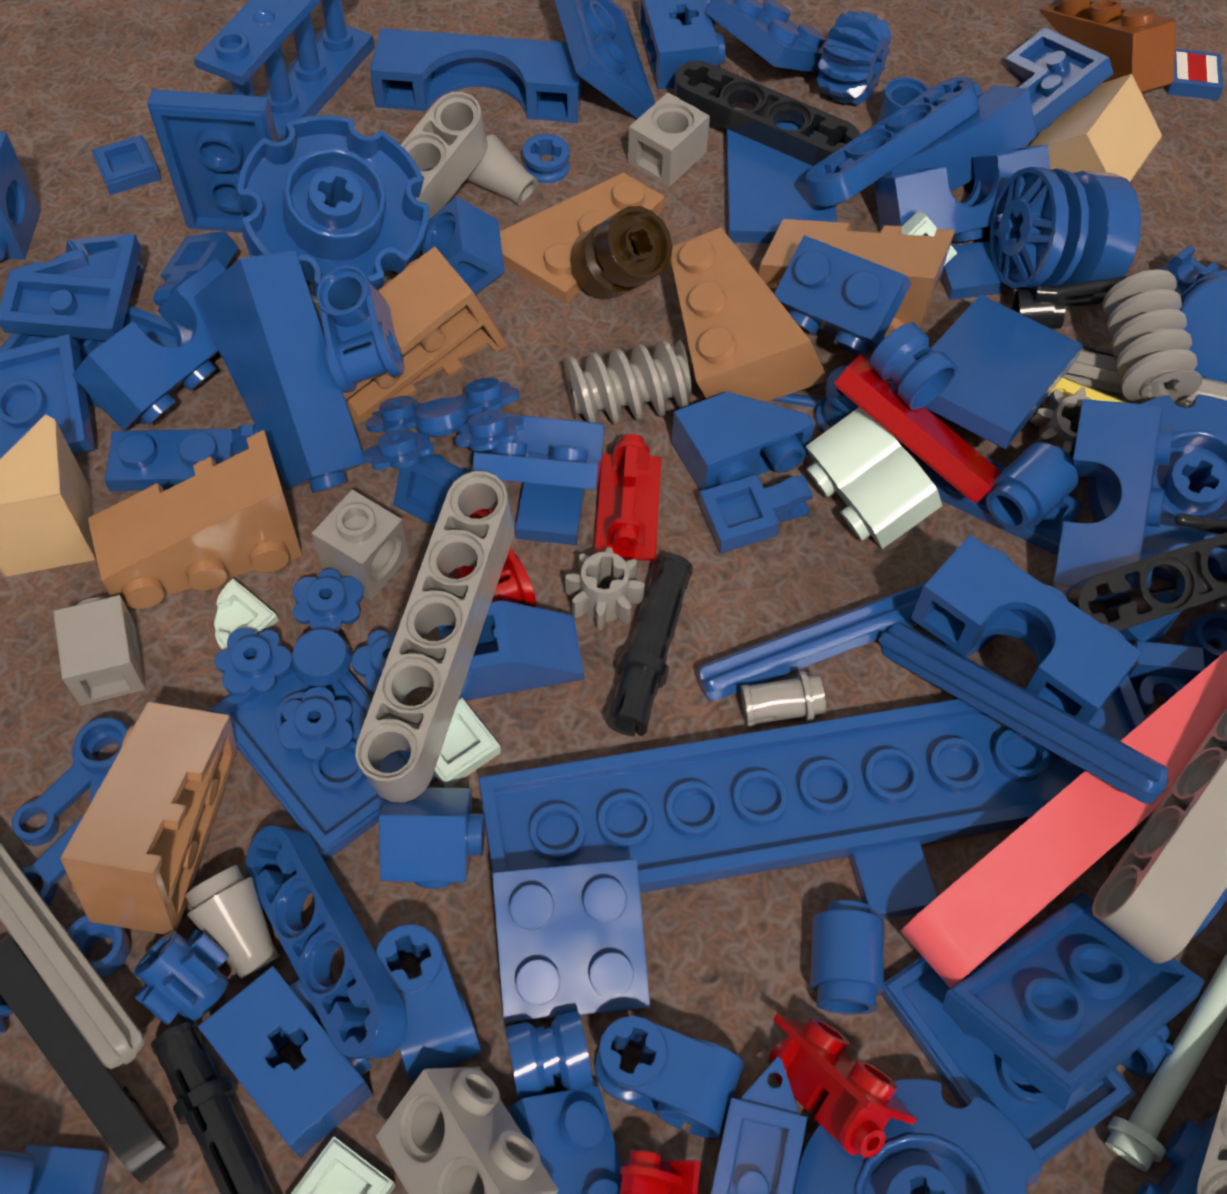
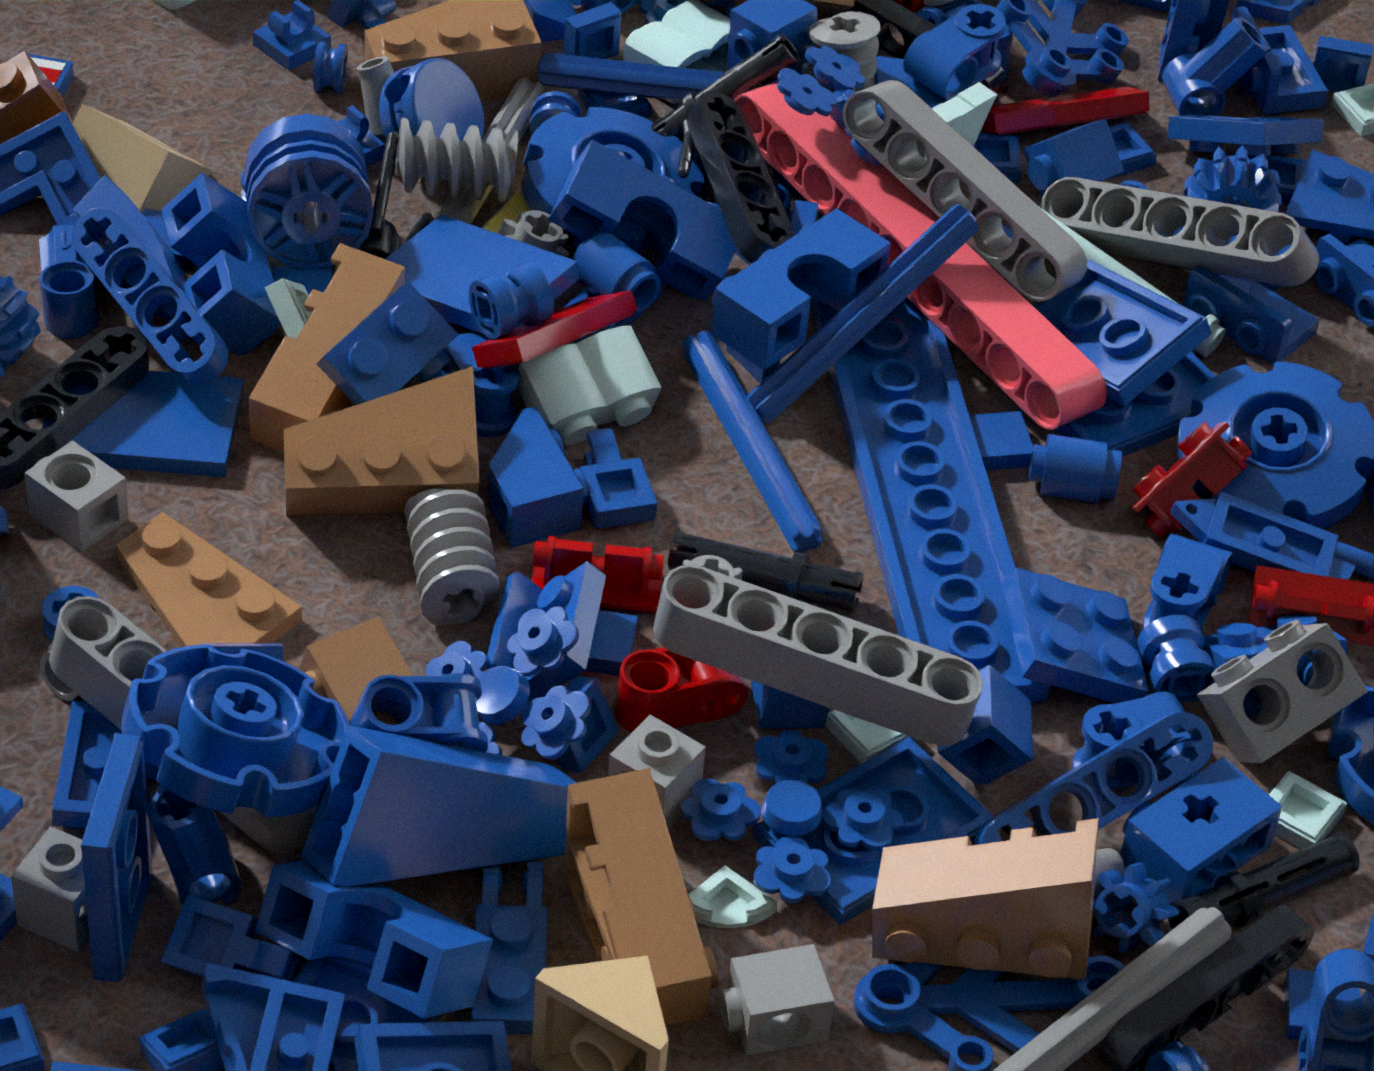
camera: 90 degrees left, 15 degrees down
(621, 253) = (277, 540): dark brown wheel -> none
(784, 699) = (825, 475): light grey pin -> none

